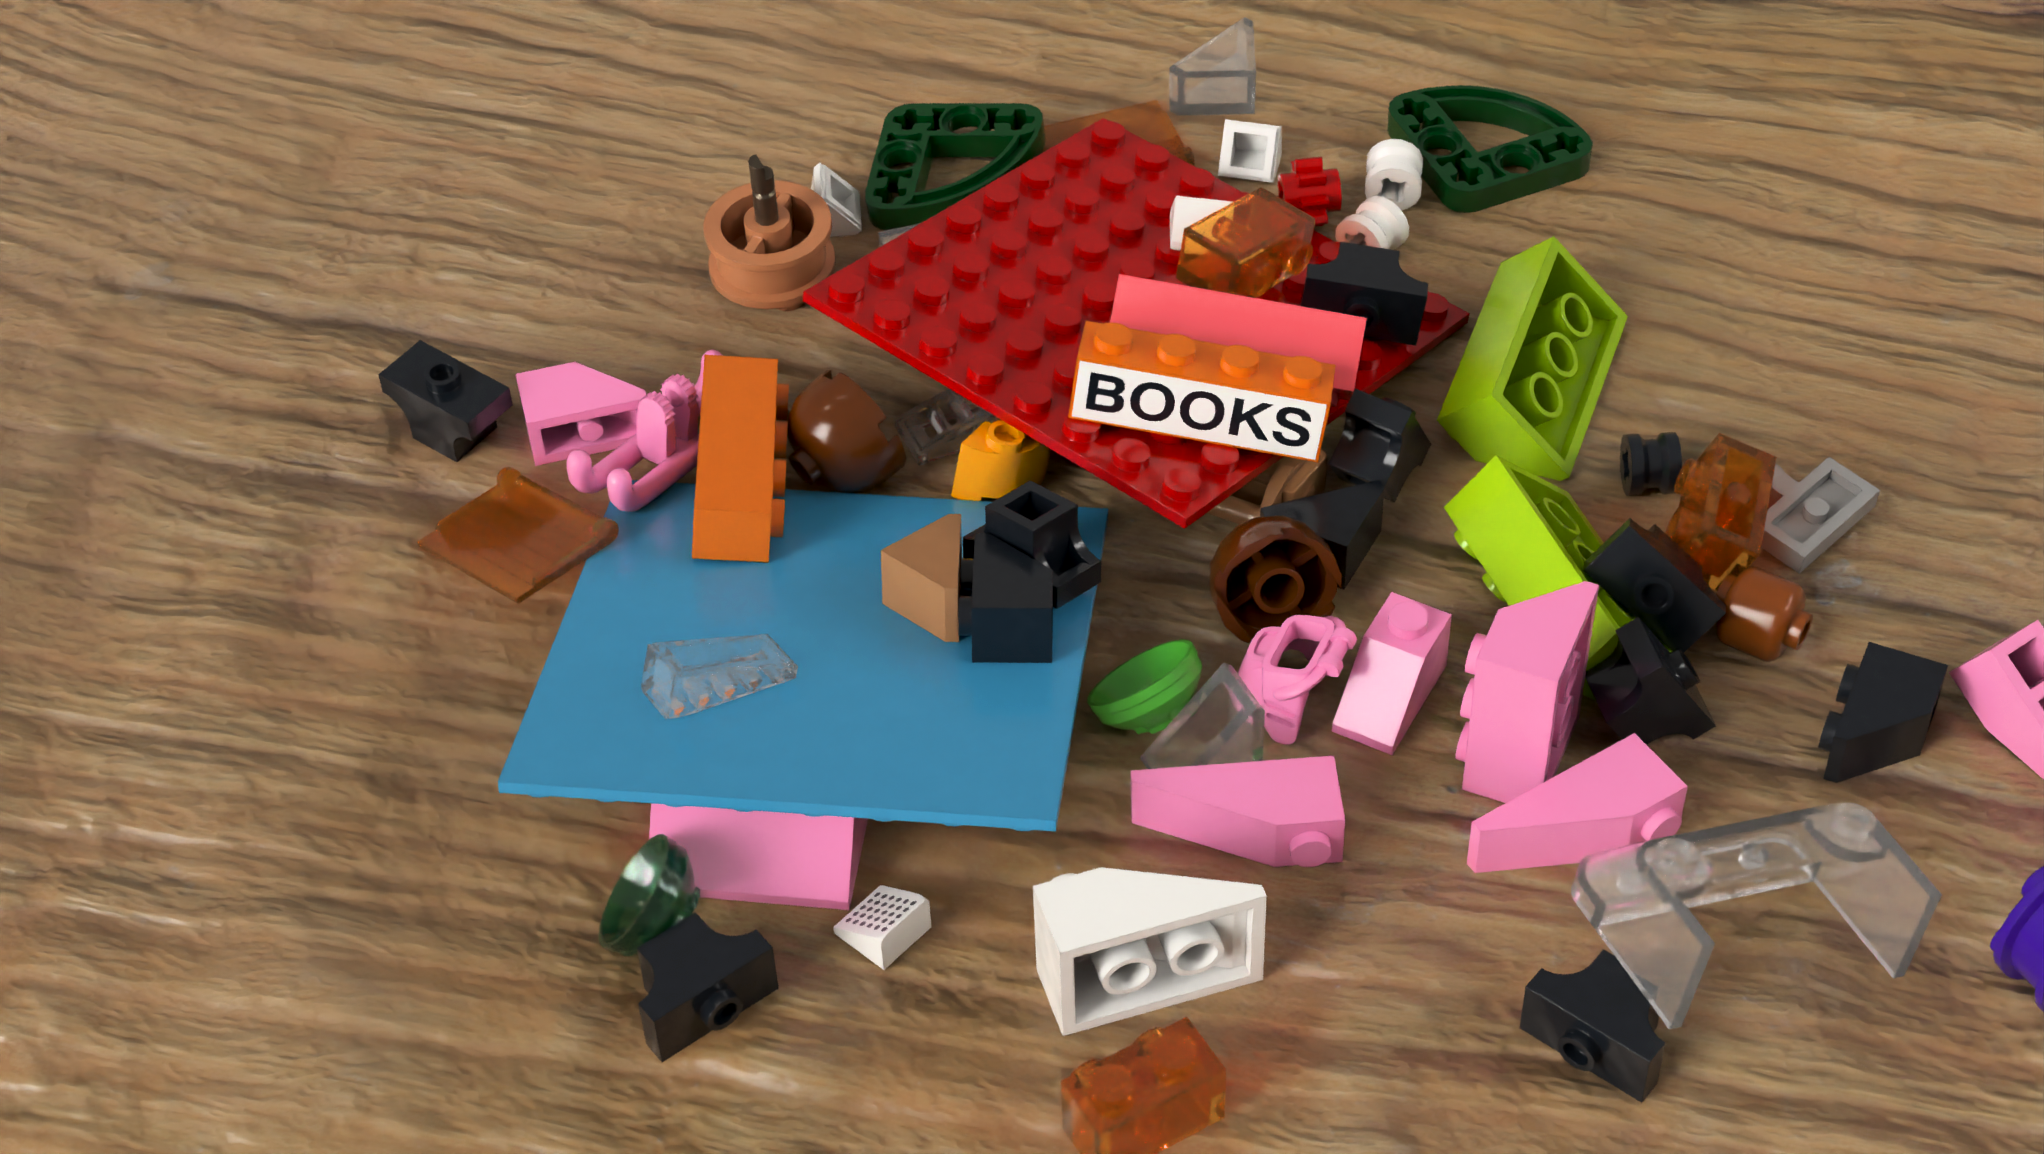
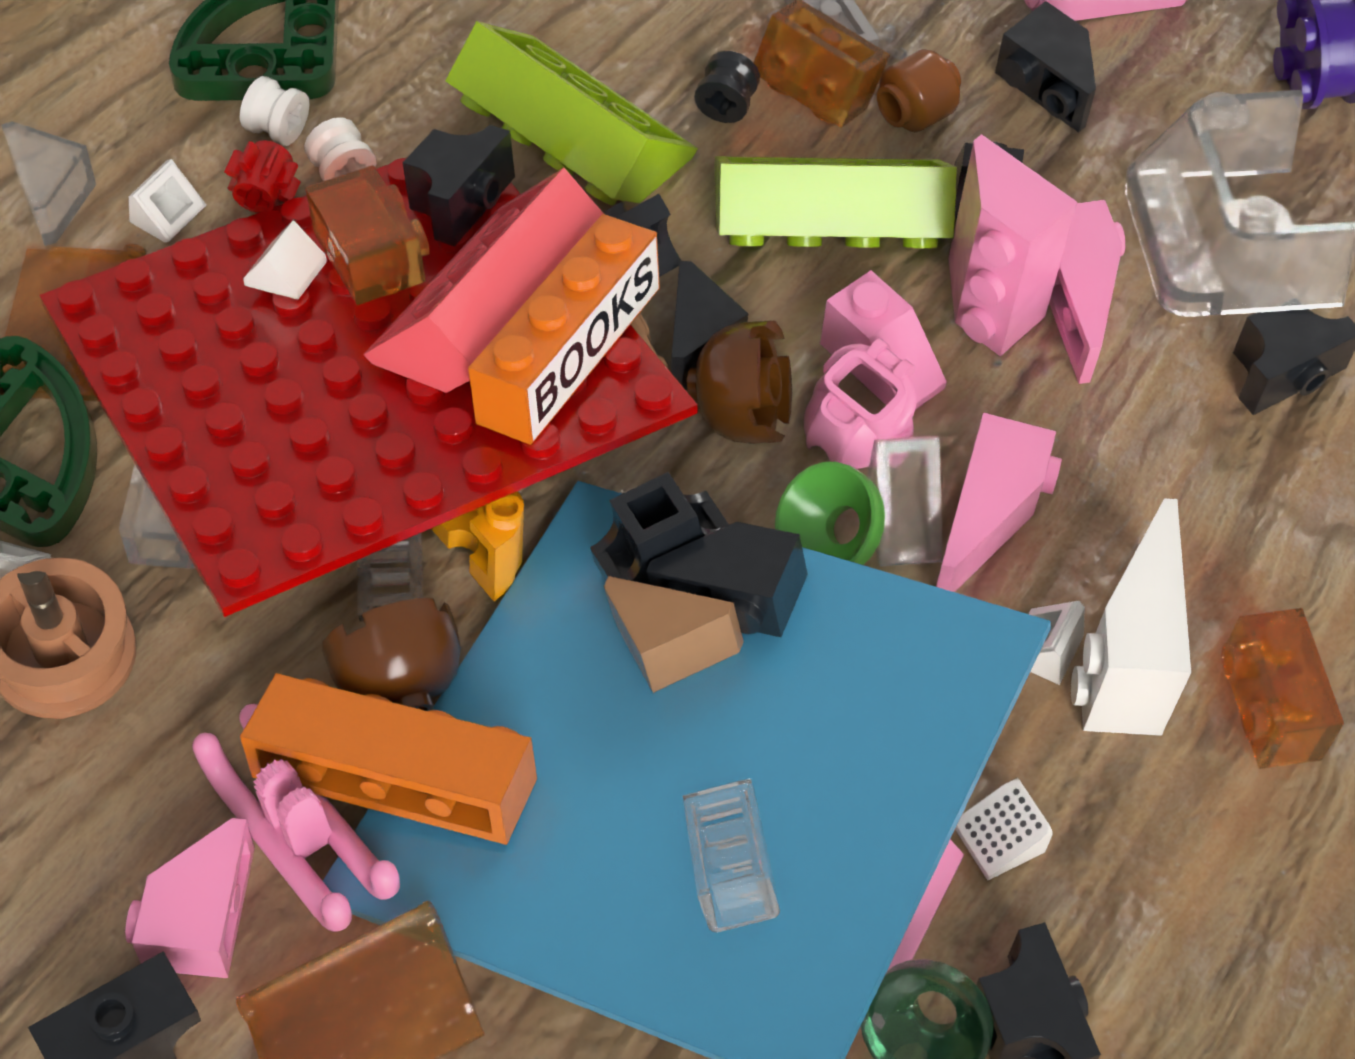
camera: 75 degrees left, 10 degrees up
(1656, 583) = (884, 131): black brick -> none

